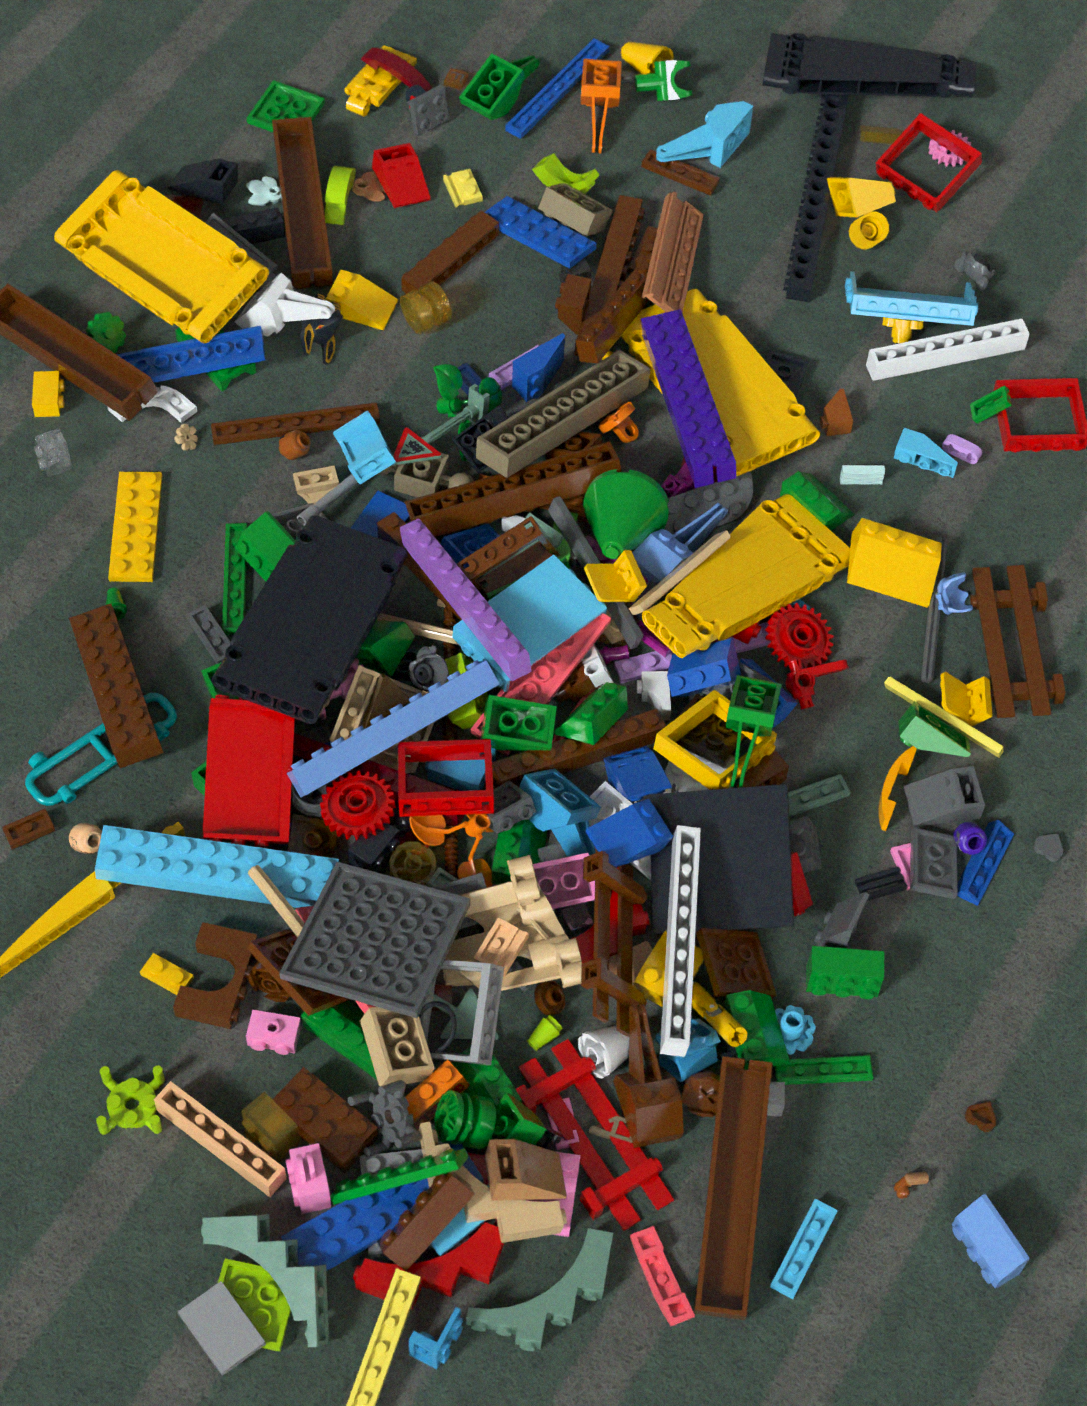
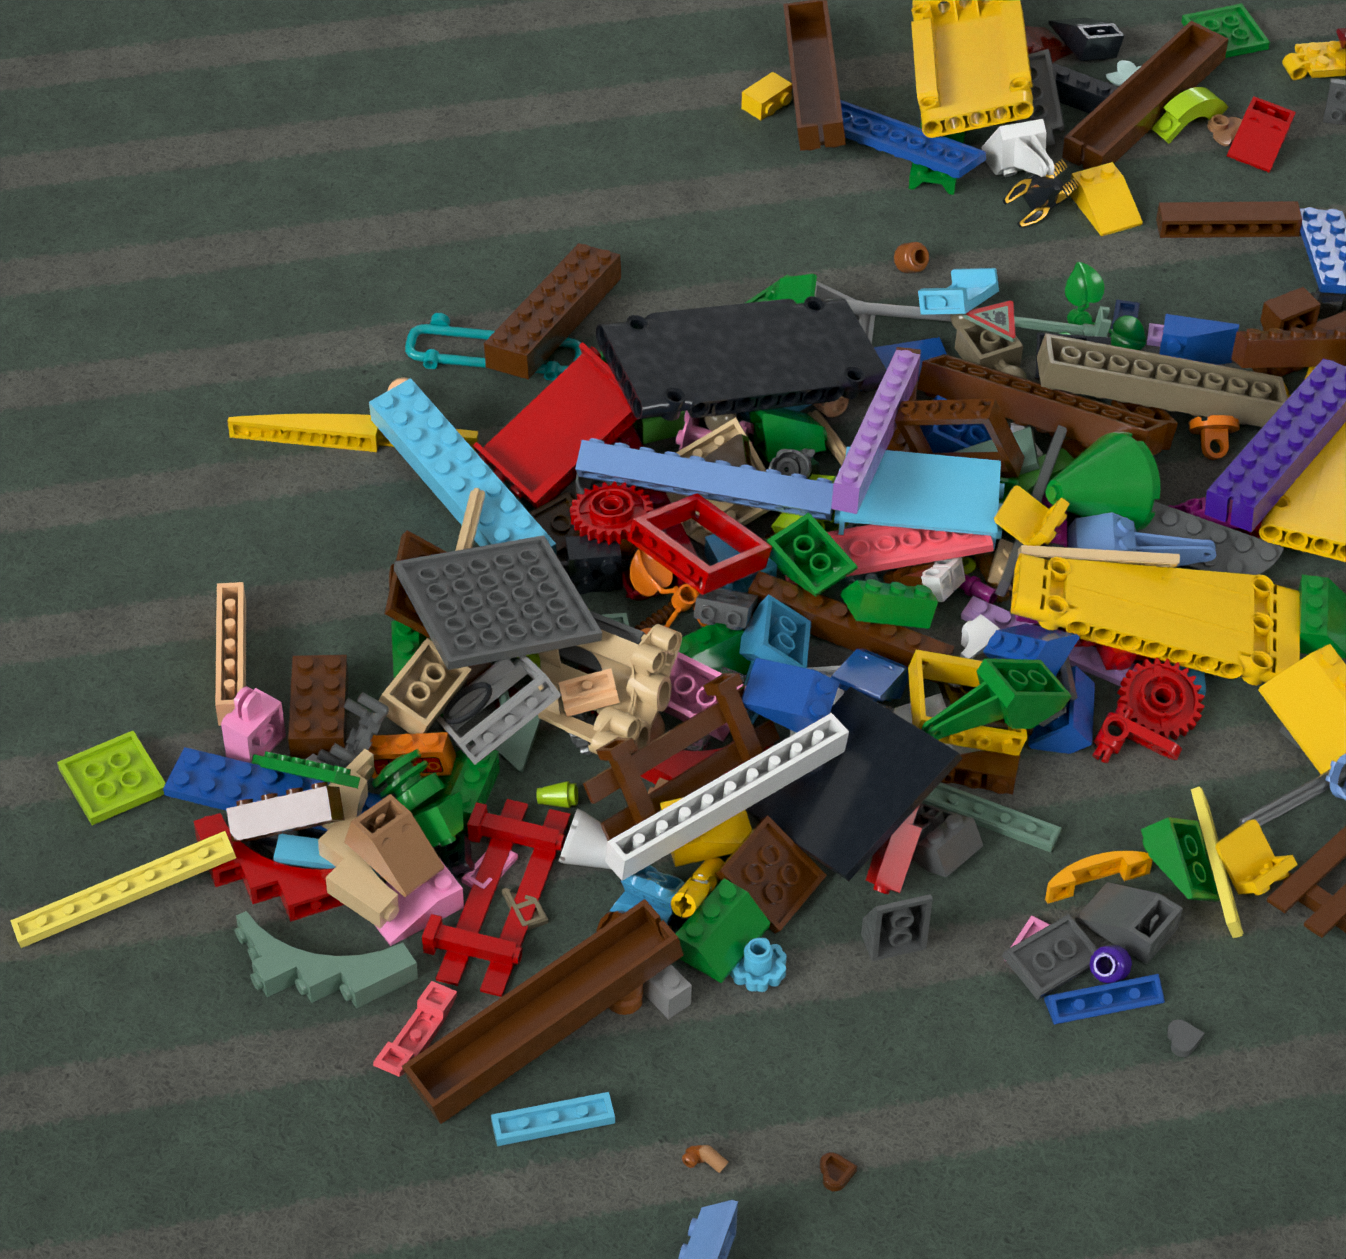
camera: 50 degrees right, 10 degrees down
(28, 828) = (375, 359): reddish brown plate -> none
(52, 452) = (714, 132): clear brick -> none
(107, 330) = (863, 83): green plant -> none
(116, 599) = (632, 265): green cone -> none
(128, 1090) = (200, 575): lime plate -> none
(135, 527) = (716, 229): yellow plate -> none
(166, 974) = (343, 527): yellow plate -> none
(171, 401) = (853, 159): white plate -> none
(186, 437) = (834, 195): tan plant -> none
(221, 1328) = (69, 767): light grey tile -> none
(222, 1005) = (352, 575): reddish brown arch -> none
(270, 1127) = (272, 668): clear yellow brick -> none
(273, 1032) = (363, 622): bright pink brick -> none
(279, 425) = (937, 246): reddish brown plate -> none
(301, 1284) = (160, 755): sand green arch -> none
(315, 483) = (893, 292): tan slope -> none
(413, 863) = (608, 592): clear yellow cylinder -> none
(426, 307) = (1151, 236): clear yellow wheel -> none
(433, 1353) = (200, 913): dark azure bracket -> none
(463, 188) = (1311, 182): light yellow plate -> none
(549, 997) = (588, 767): reddish brown plate -> none
(650, 1094) = (571, 901): reddish brown slope -> none
(825, 1070) = (747, 1019): green tile -> none
(844, 972) = (854, 958): green brick -> none
(878, 876) = (988, 931): black tile -> none

